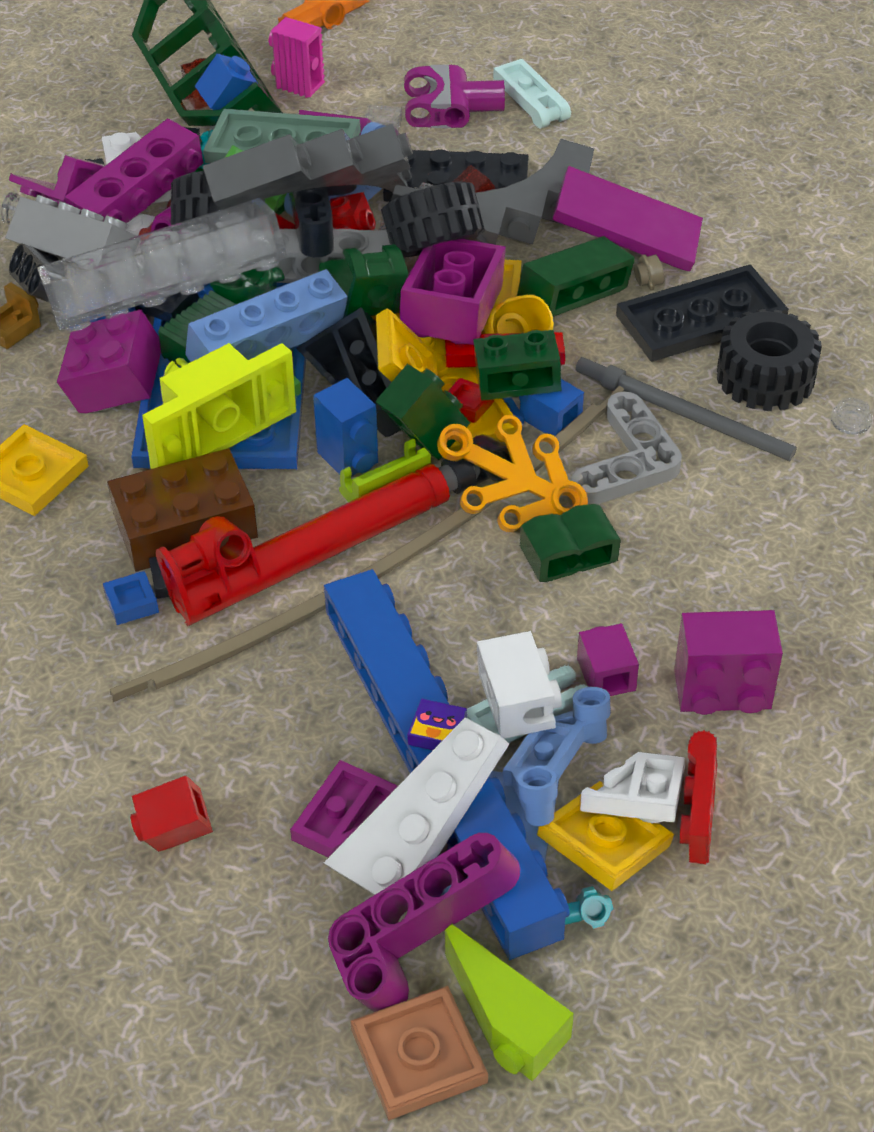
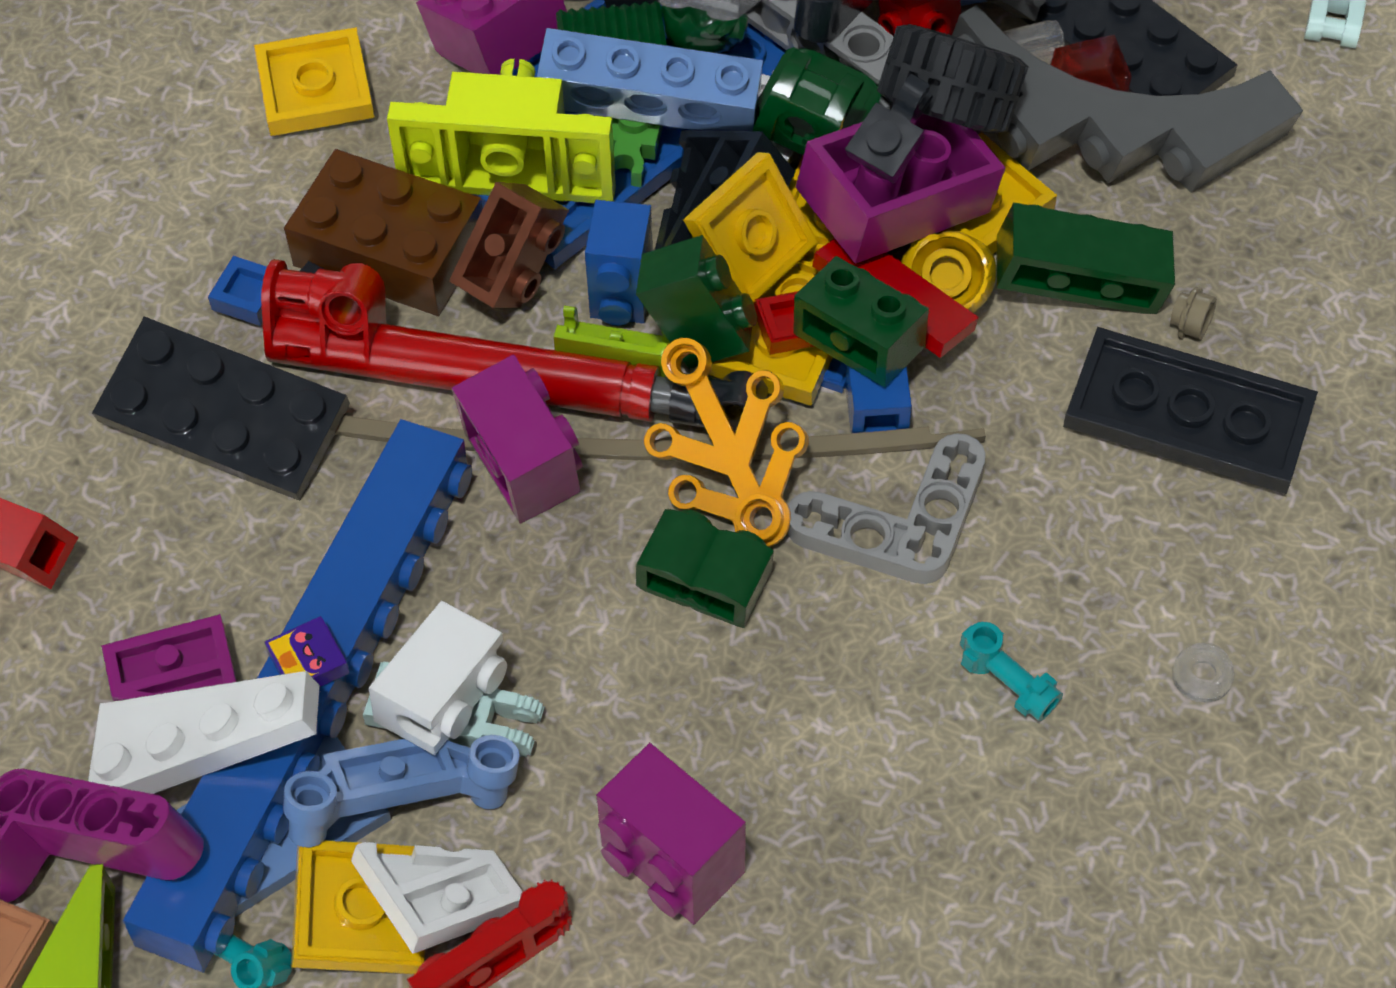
camera: 45 degrees right, 10 degrees up
(197, 663) = (221, 408): none -> black plate
(276, 461) = (509, 246): none -> copper brick
(408, 543) = (518, 437): none -> magenta brick
(446, 257) = (889, 136): none -> black plate
(608, 659) = (579, 728): magenta brick -> none
(613, 376) = (995, 417): dark grey bar -> none
(628, 218) = (1237, 229): magenta tile -> none
(748, 477) = (984, 654): none -> teal bar
(768, 359) = (1175, 565): black tyre -> none

